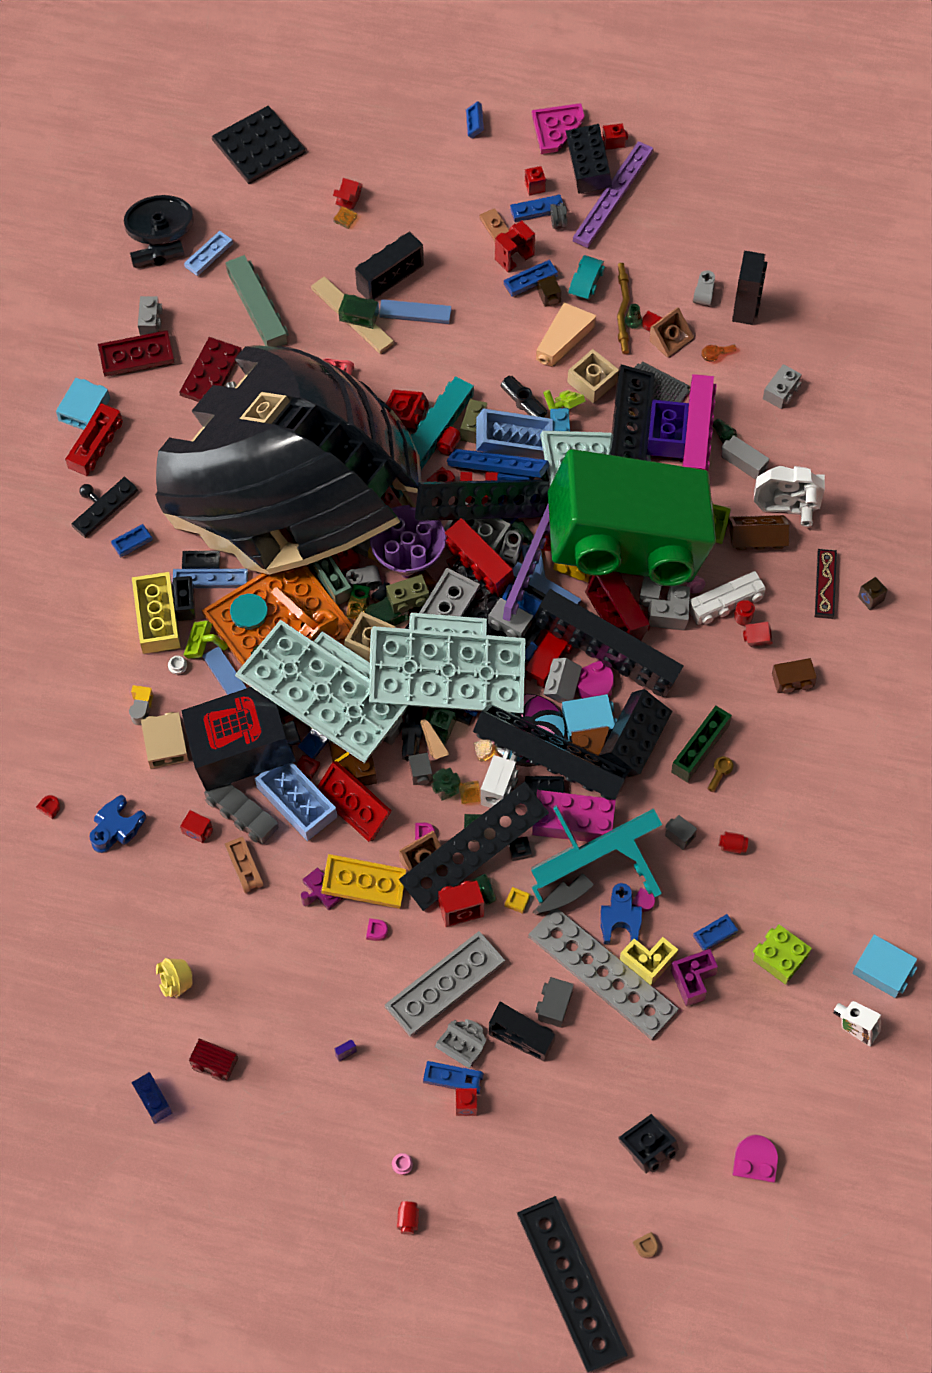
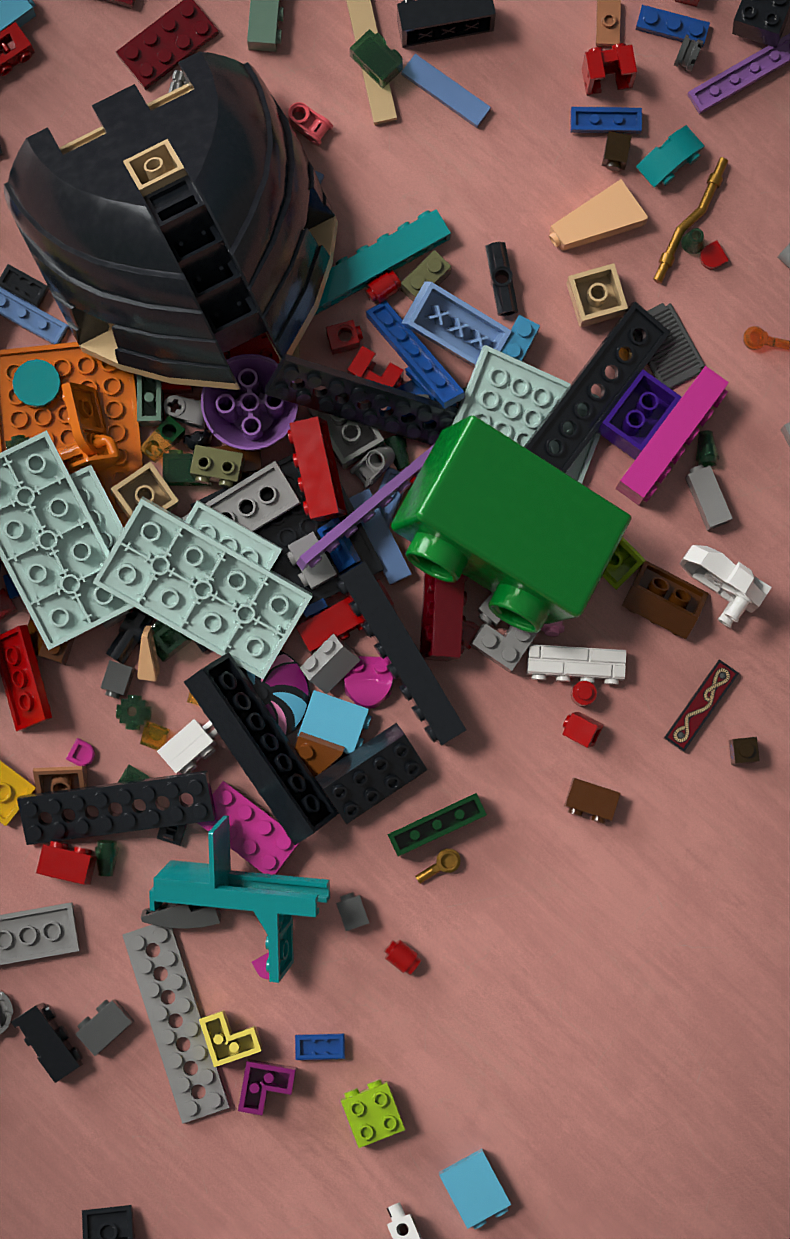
camera: 30 degrees right, 20 degrees up
(408, 406) = (359, 217): red plate -> none
(517, 900) = (134, 887): yellow tile -> none
(545, 783) = (232, 772): black plate -> none
(566, 399) = (549, 310): lime plate -> none
(620, 914) = (232, 969): blue piece -> none
(670, 333) = (724, 287): nougat slope -> none

